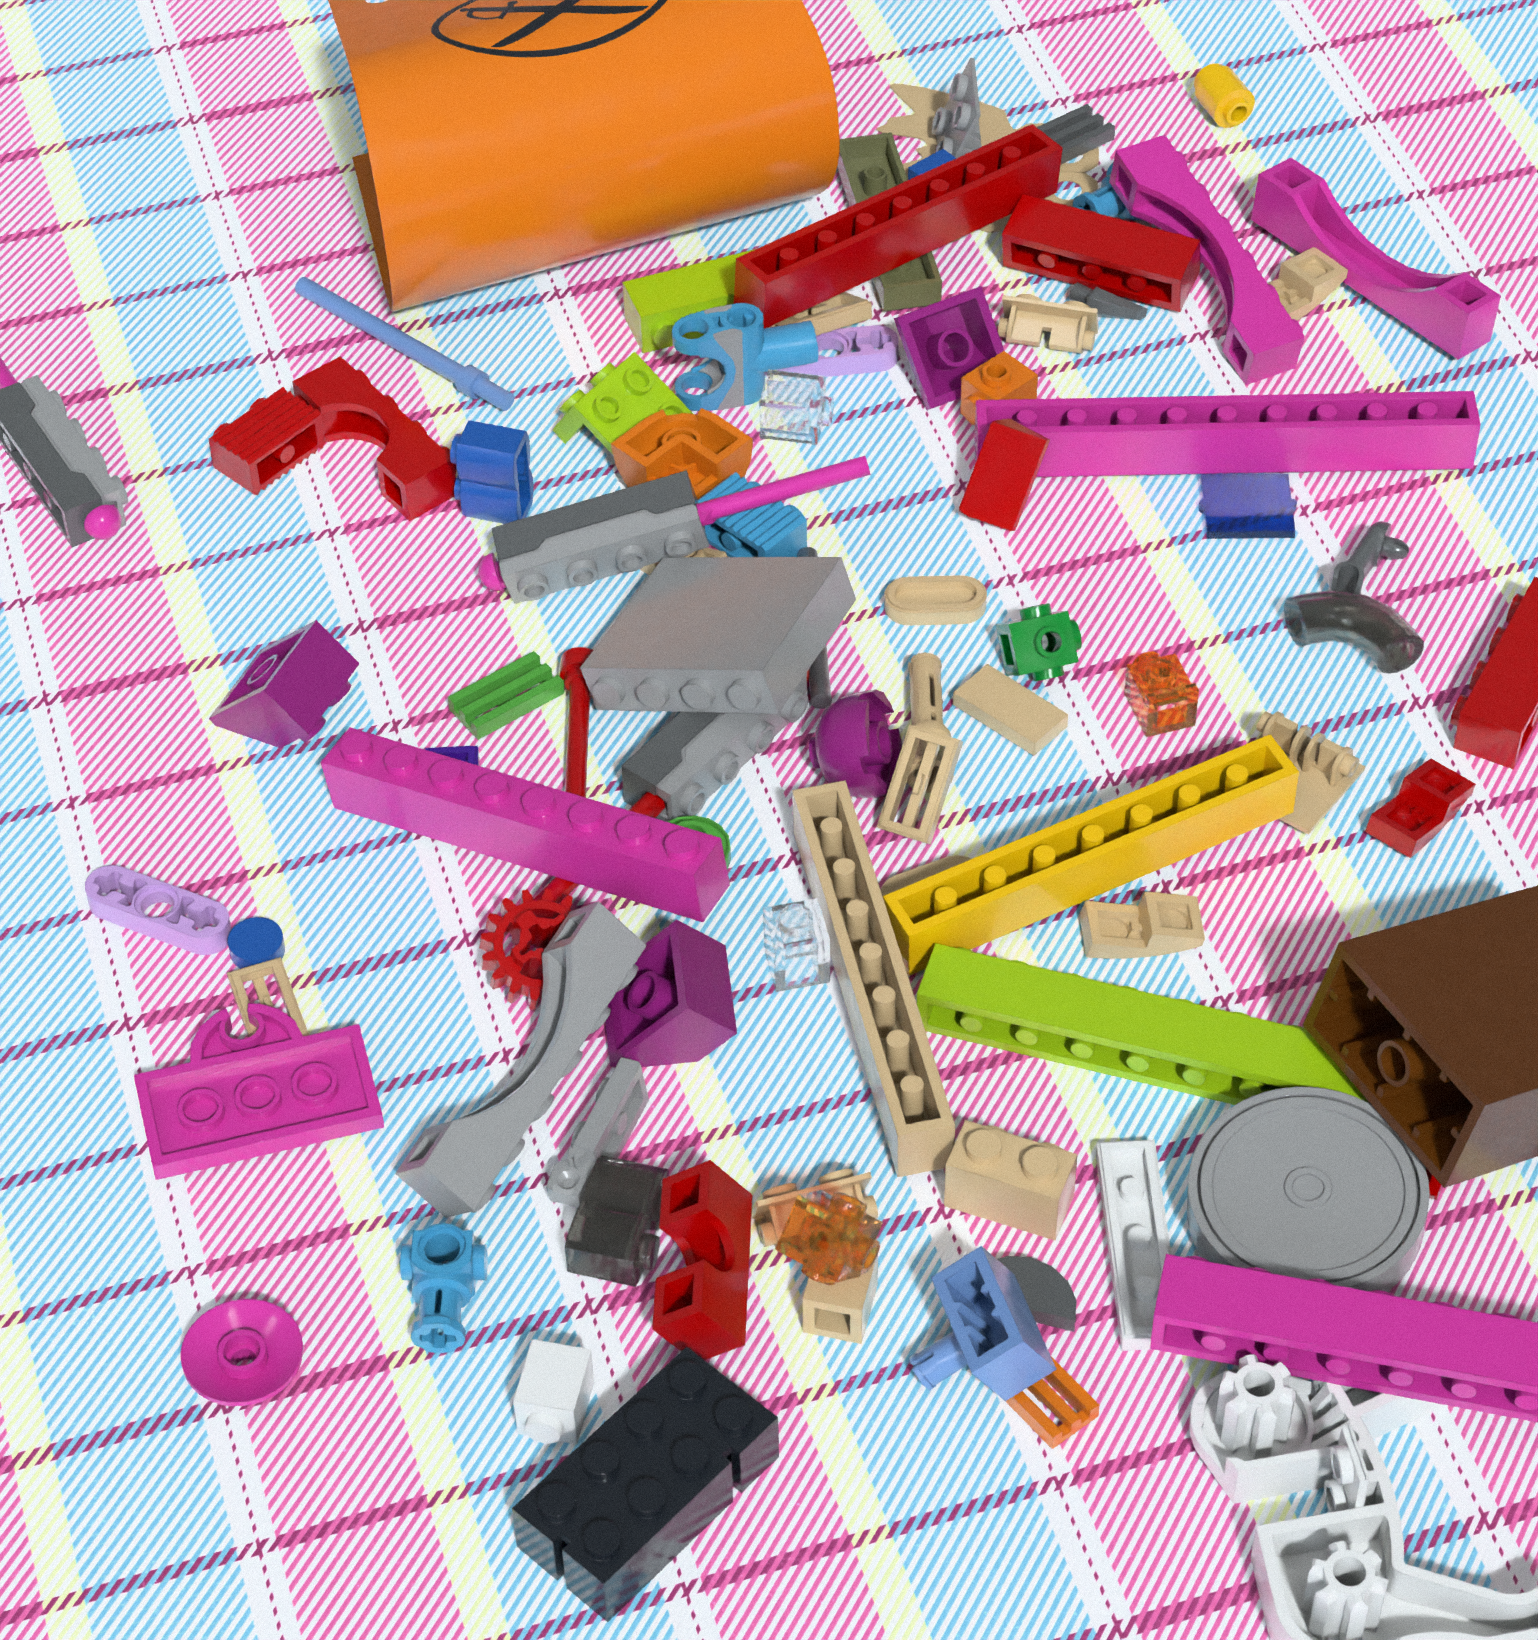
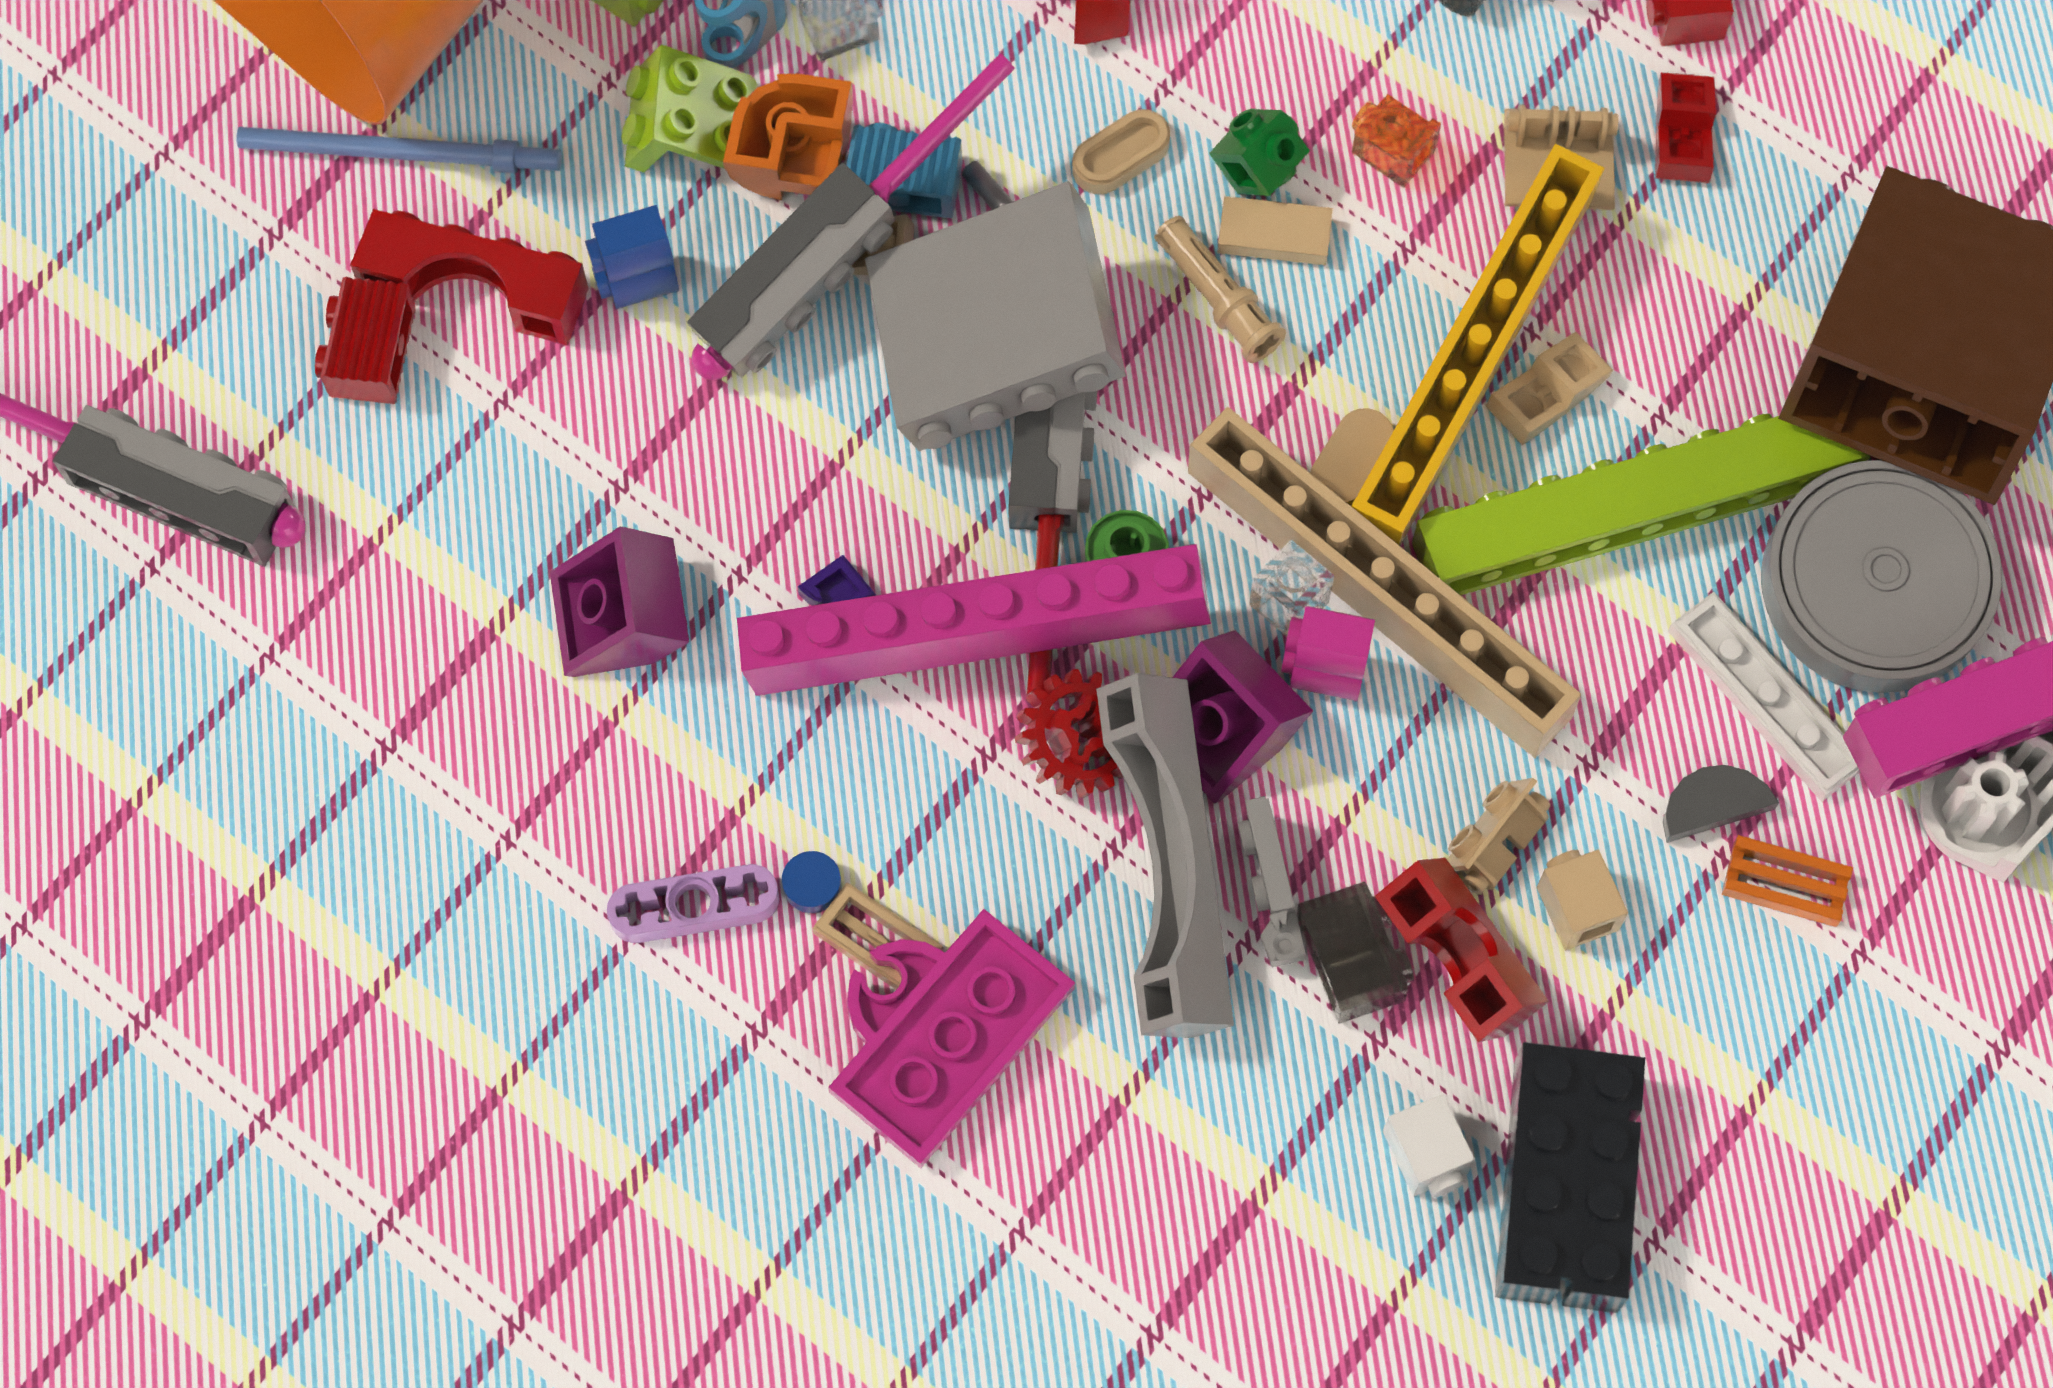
camera: 35 degrees left, 20 degrees up
(238, 1333) = (1148, 1253): dark pink dish -> none
(442, 1287) = (1259, 1115): dark azure connector -> none
(501, 690) = (835, 443): bright green tile -> none
(577, 719) = (874, 422): red piece -> none
(781, 995) = (1328, 652): none -> dark pink brick
(830, 1236) = (1575, 870): clear orange brick -> none
(857, 744) = (1187, 357): magenta cylinder -> none
(939, 790) = (1267, 316): tan tile -> none
(989, 1327) = (1738, 864): medium blue brick -> none
(1010, 1179) = (1639, 705): tan brick -> none

